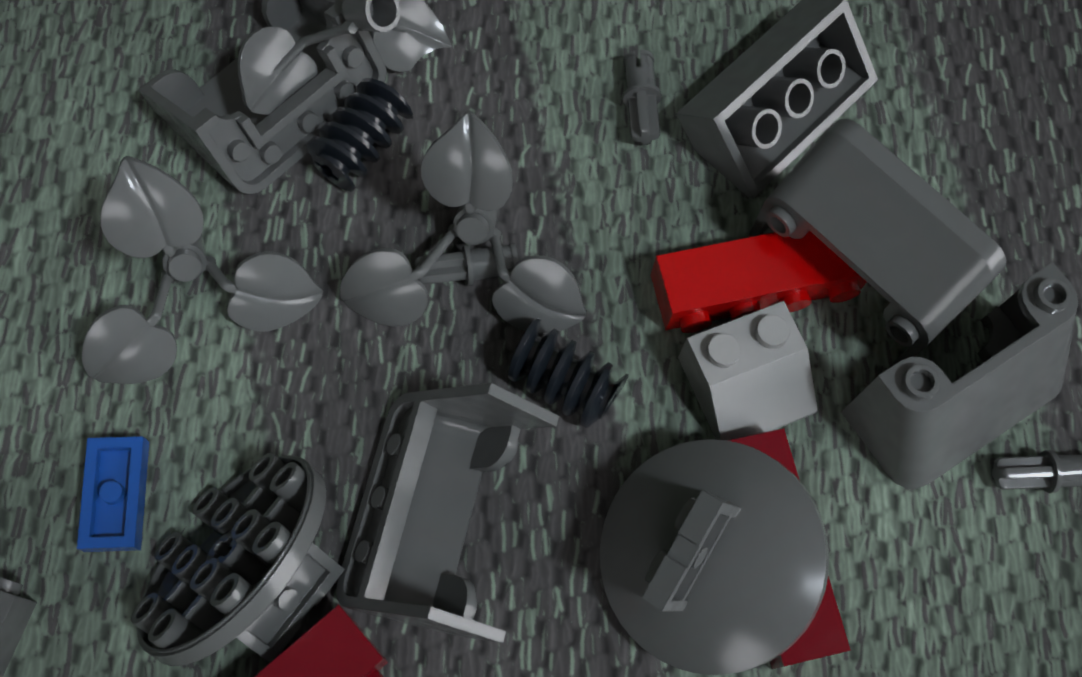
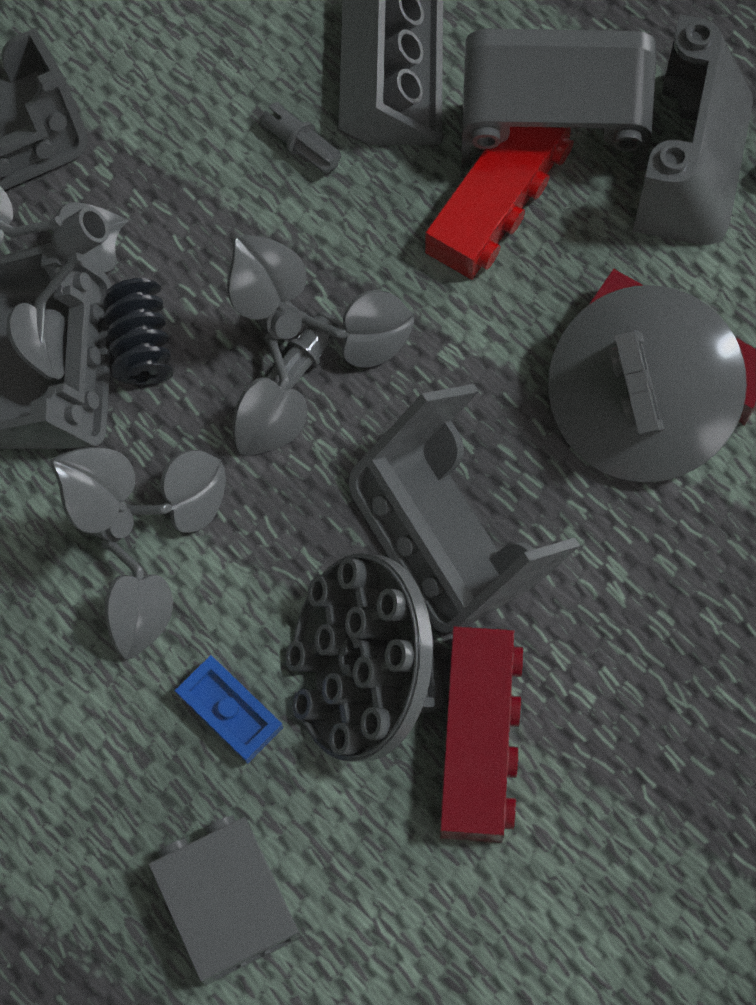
camera: 35 degrees left, 0 degrees up
(564, 375) = (442, 361): black piece -> none
(751, 373) = (556, 256): light grey slope -> none

